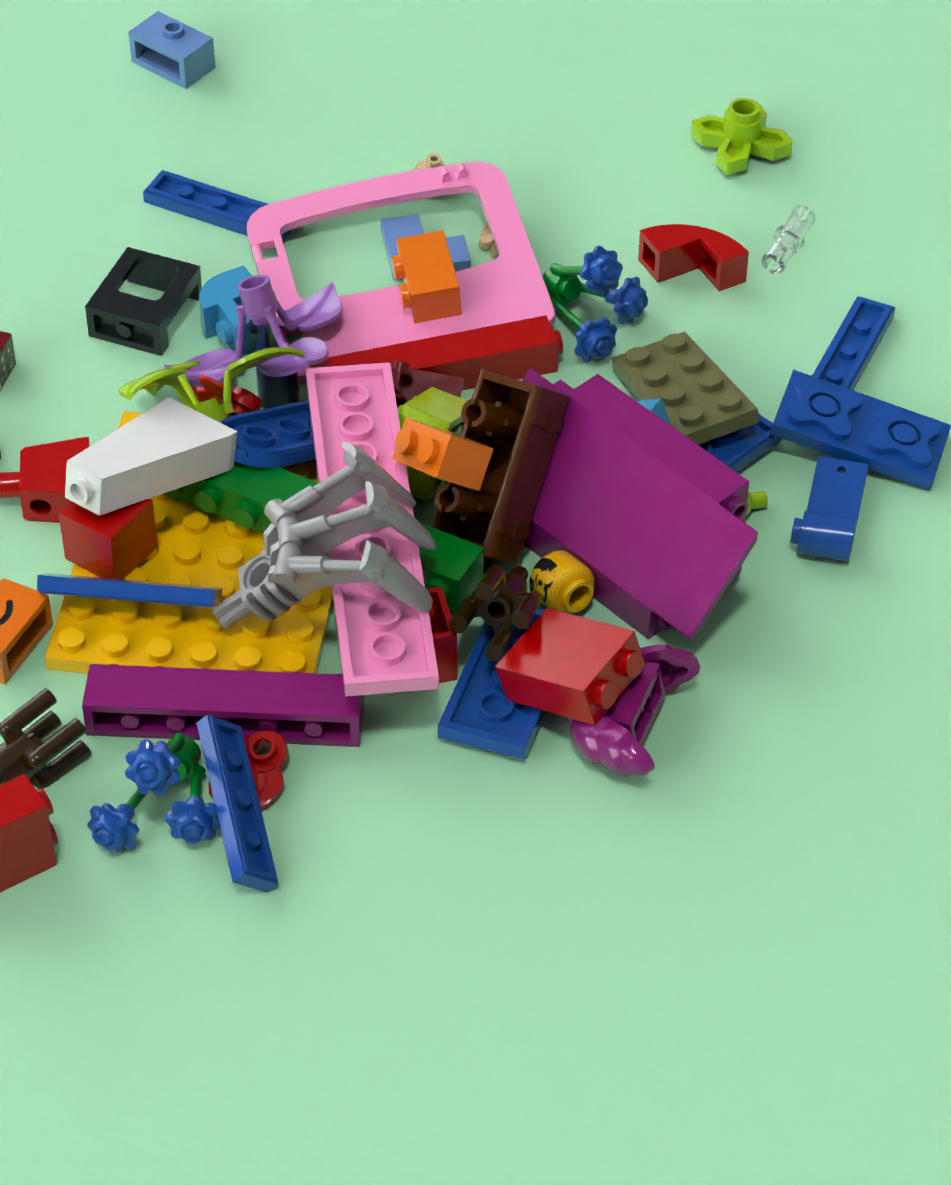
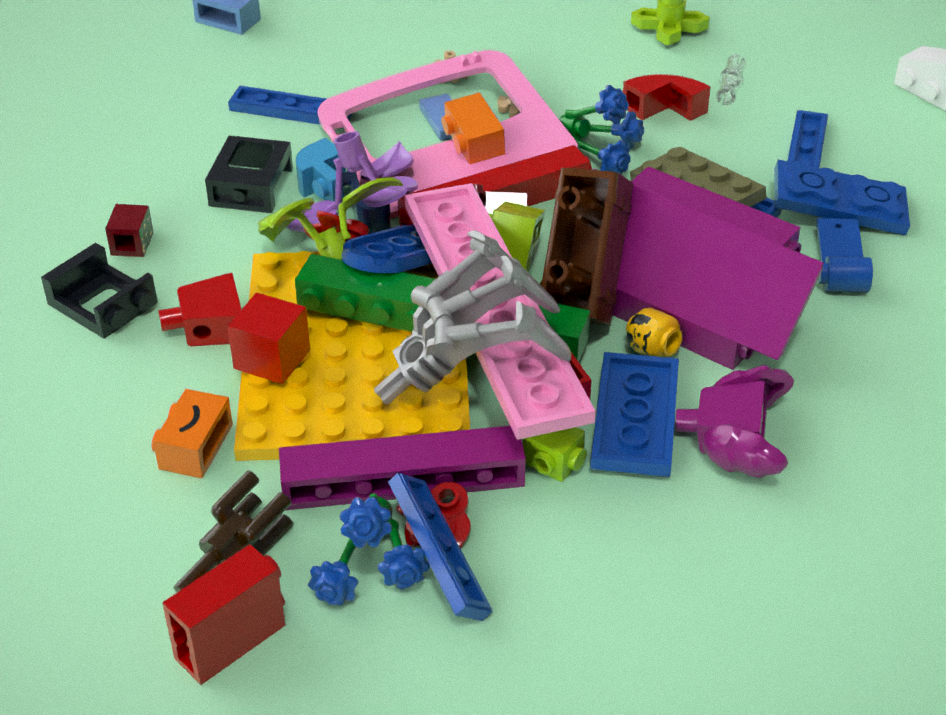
camera: 10 degrees left, 5 degrees down
(129, 590) = (299, 383): blue tile -> none
(150, 457) = (296, 272): white slope -> none
(402, 714) = (556, 452): none -> lime brick
(442, 454) = (544, 237): orange brick -> none
(500, 603) = (618, 354): dark brown plant -> none
(570, 666) = (695, 391): red brick -> none

